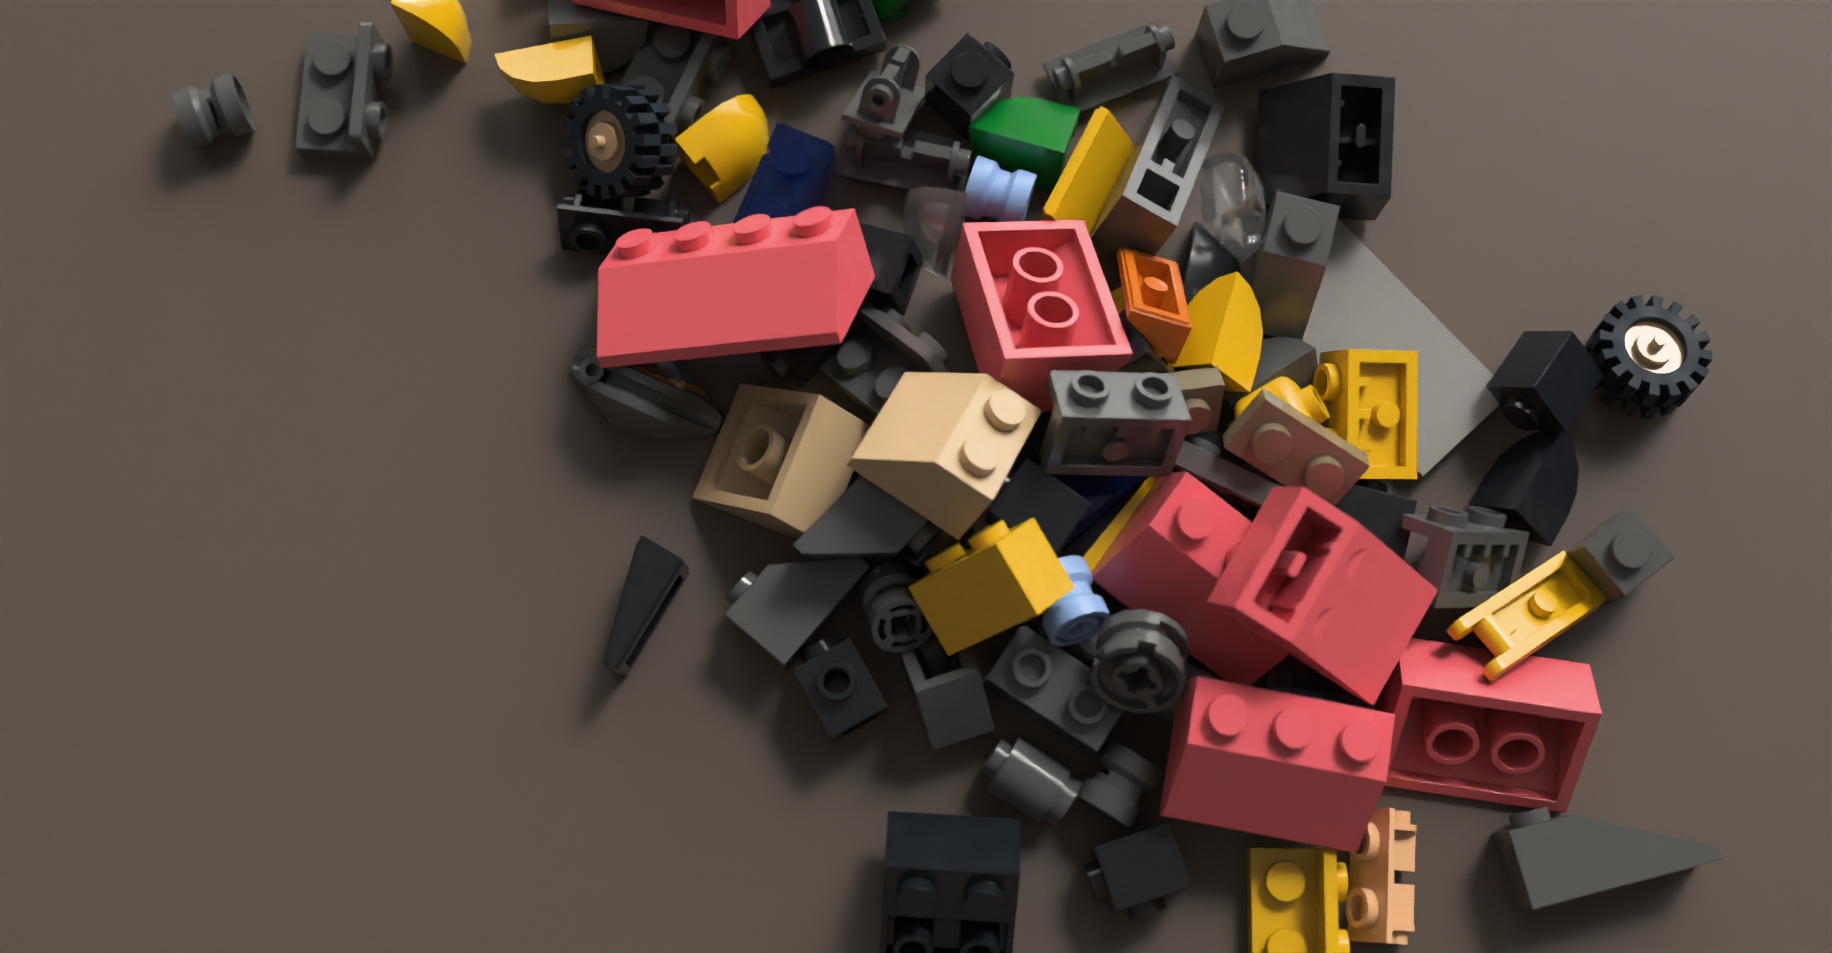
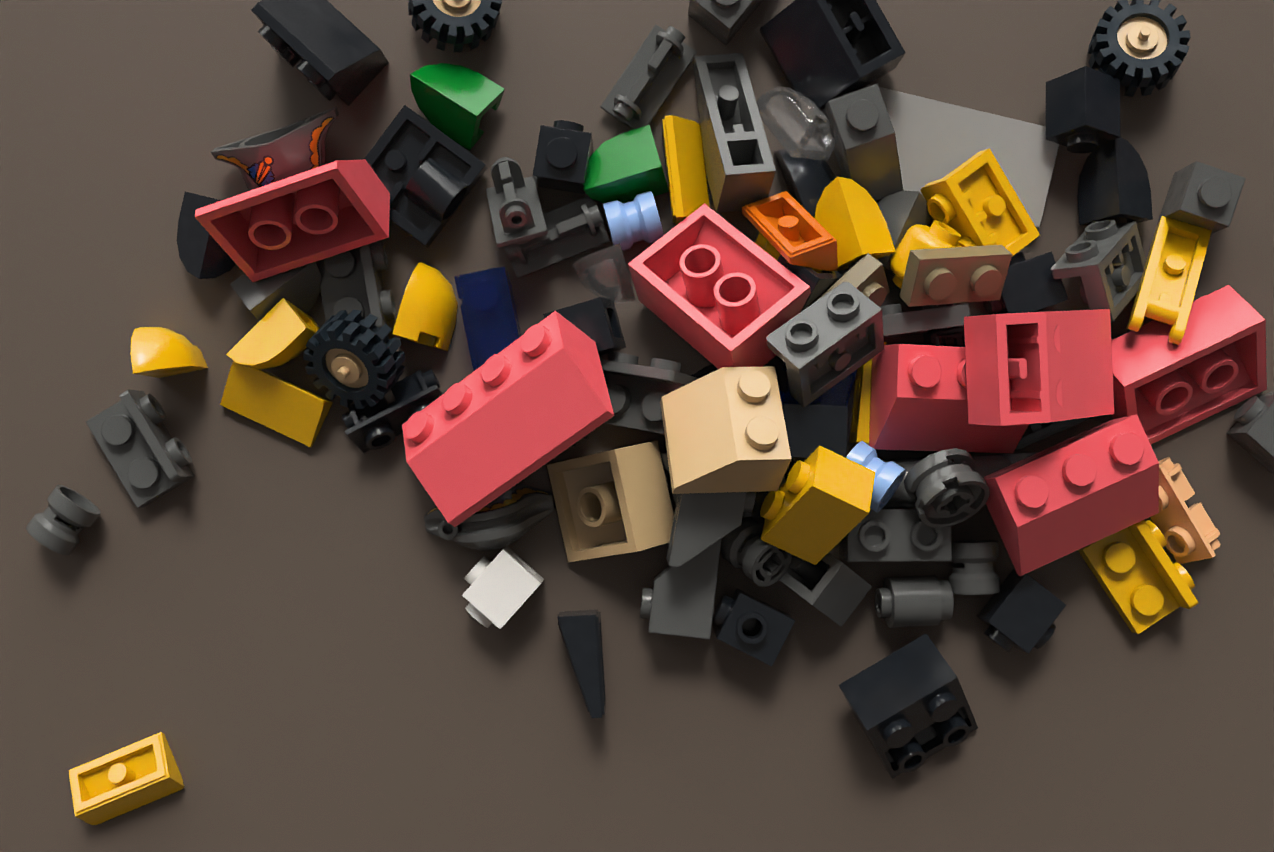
camera: 30 degrees left, 10 degrees up
(77, 415) = (124, 780): none -> yellow slope
(508, 138) = (275, 403): none -> yellow slope
(603, 472) = (499, 588): none -> white brick

